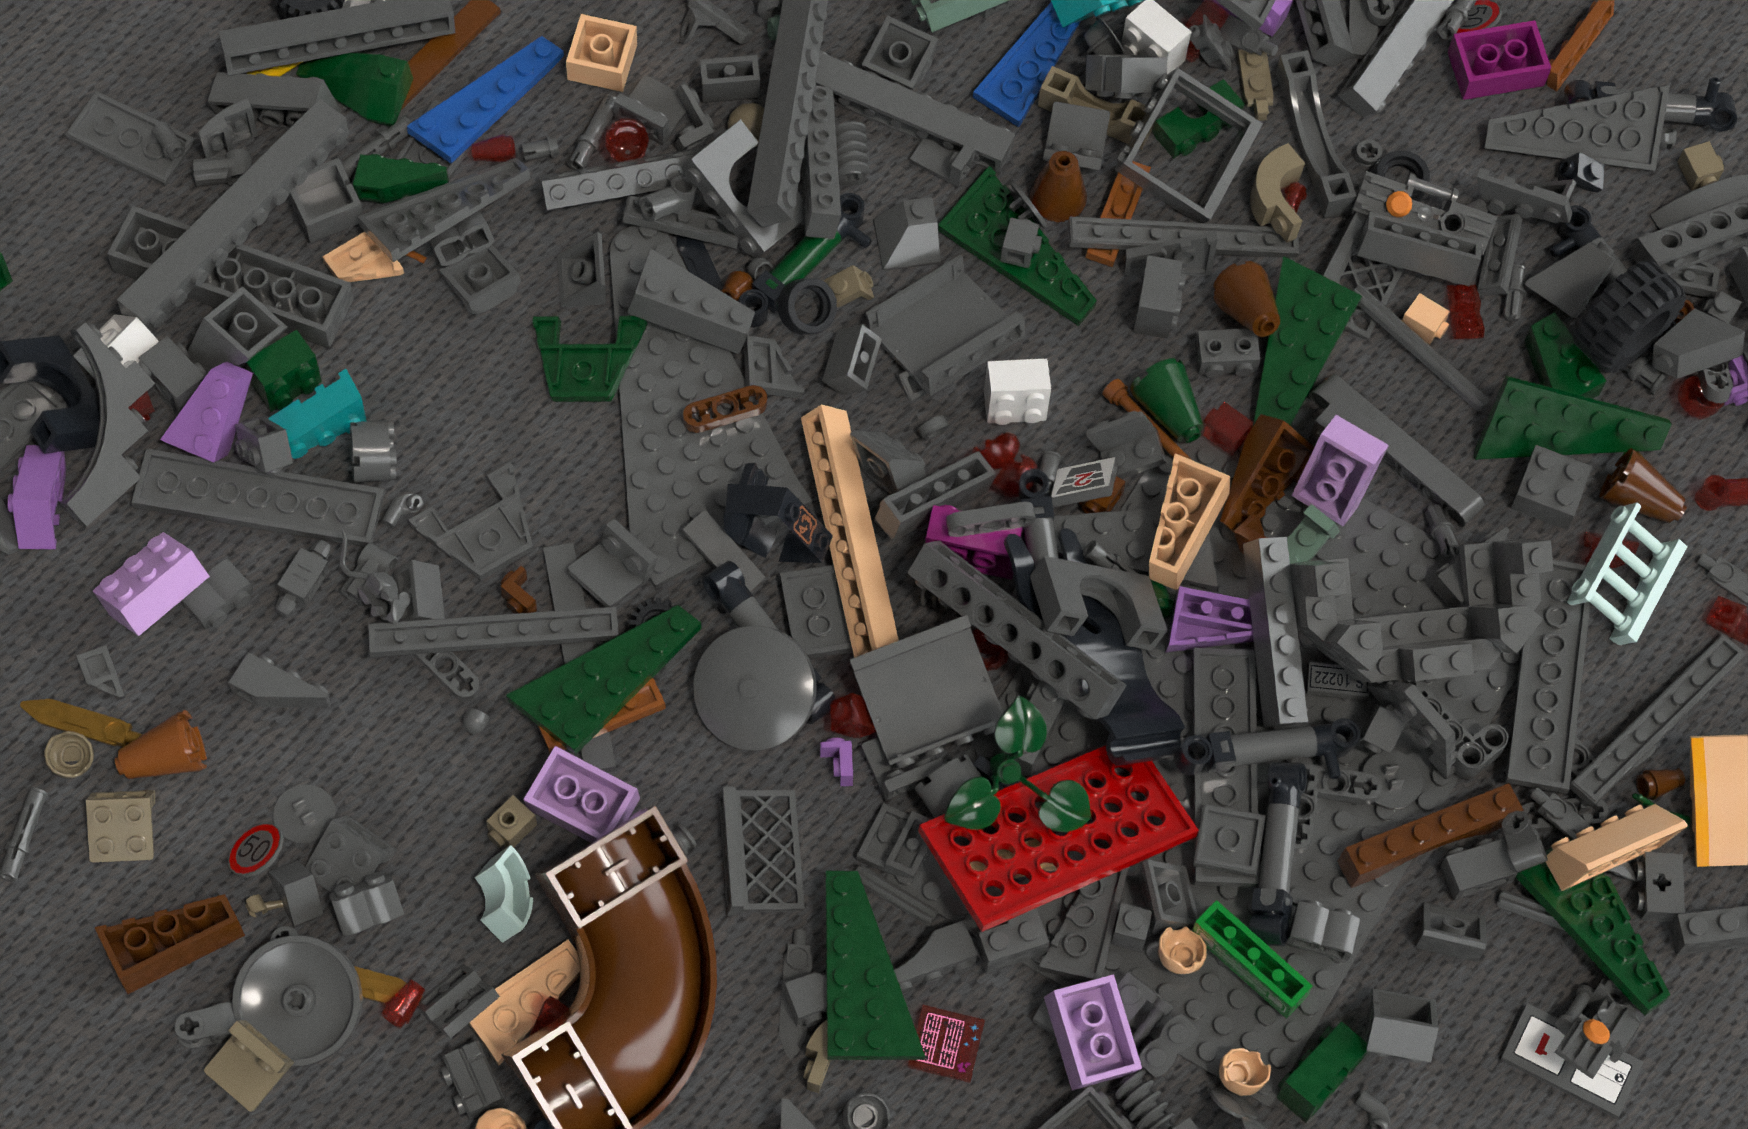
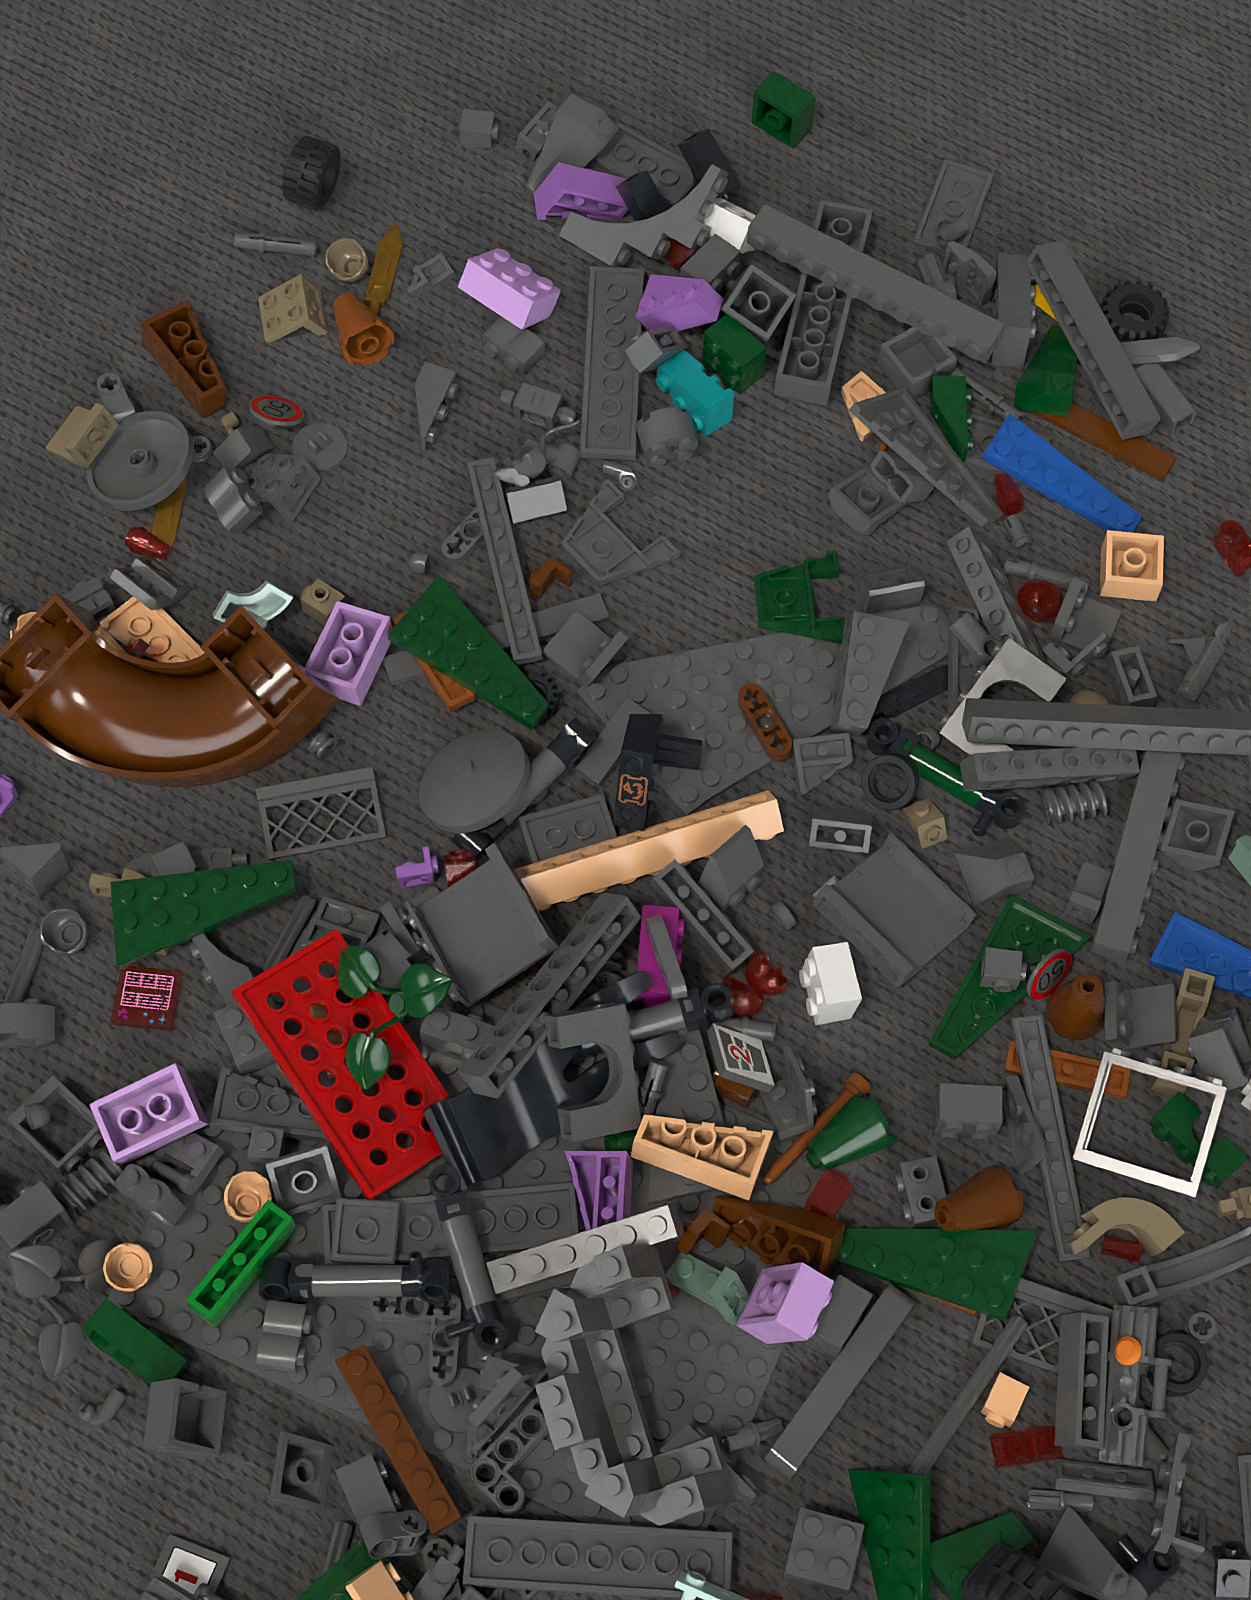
camera: 85 degrees right, 0 degrees up
(736, 284) = (899, 714): reddish brown cone -> none

